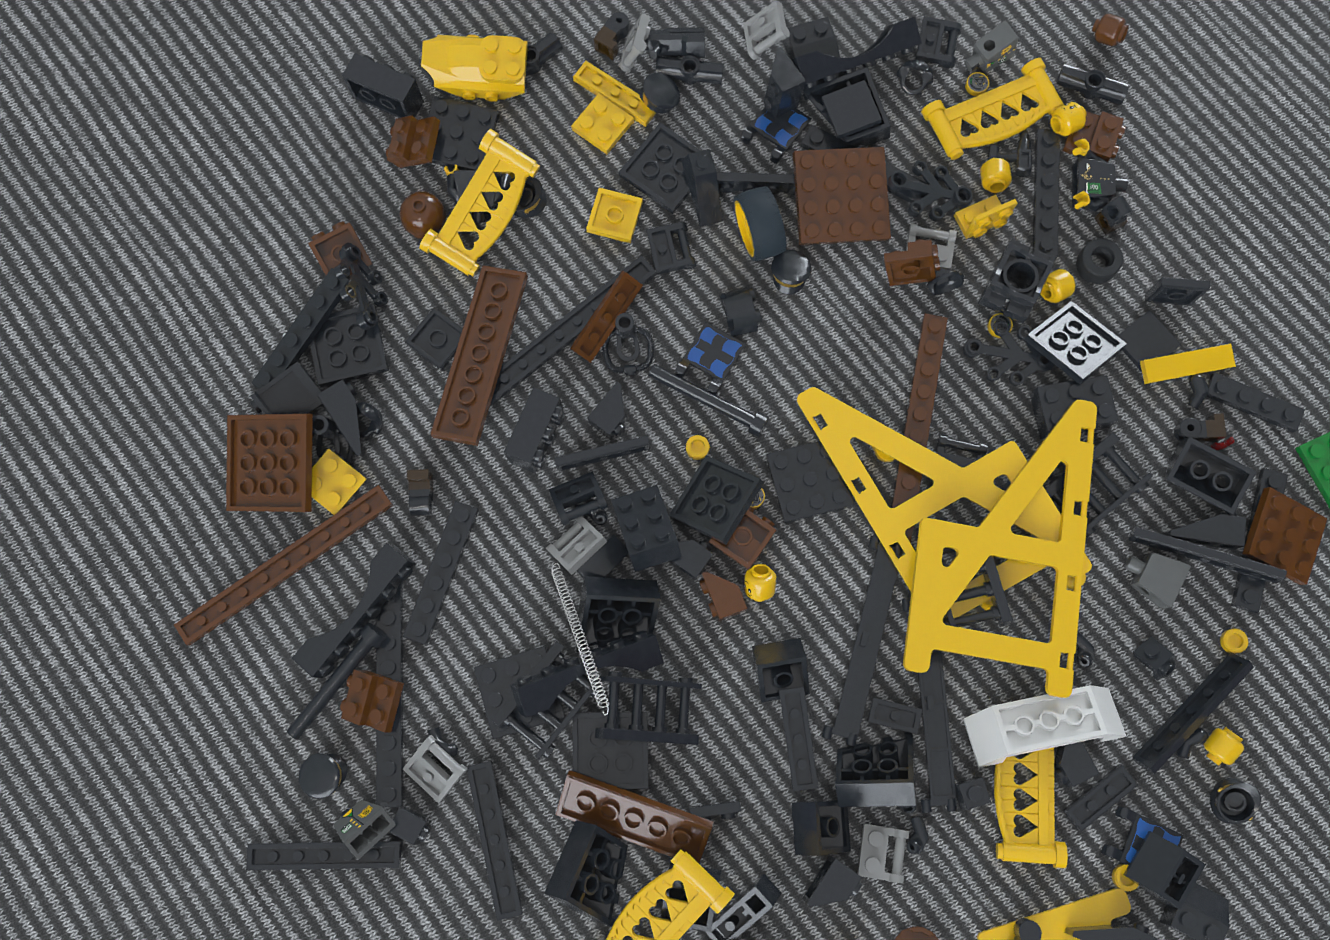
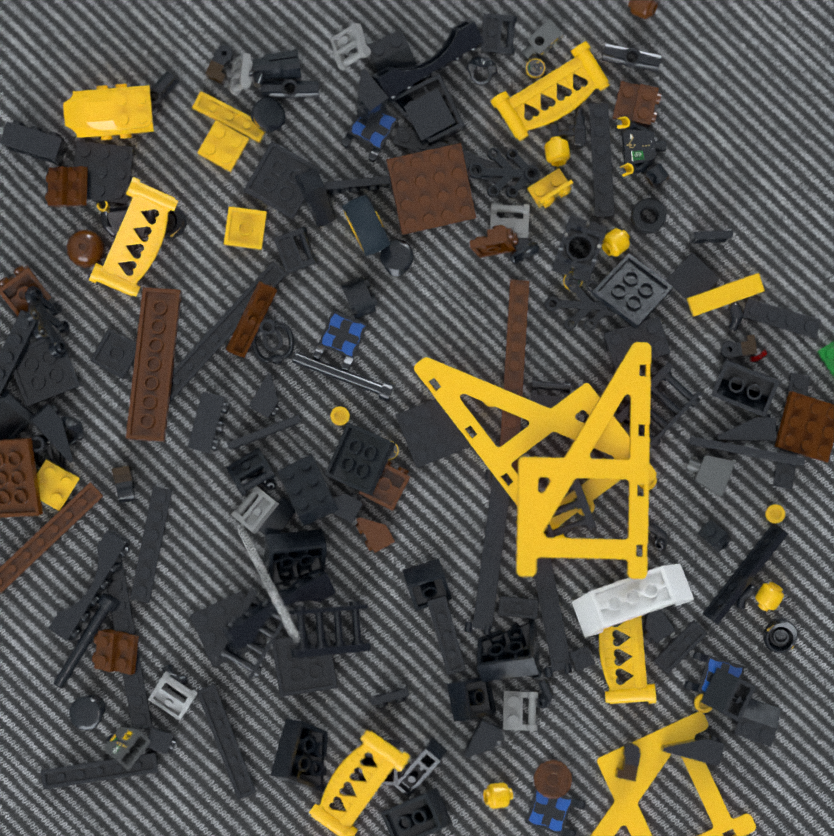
camera: 10 degrees left, 10 degrees up
(633, 817) = (328, 710): reddish brown tile -> none
(760, 582) = (402, 520): yellow head -> none
(1068, 119) = (612, 95): yellow head -> none

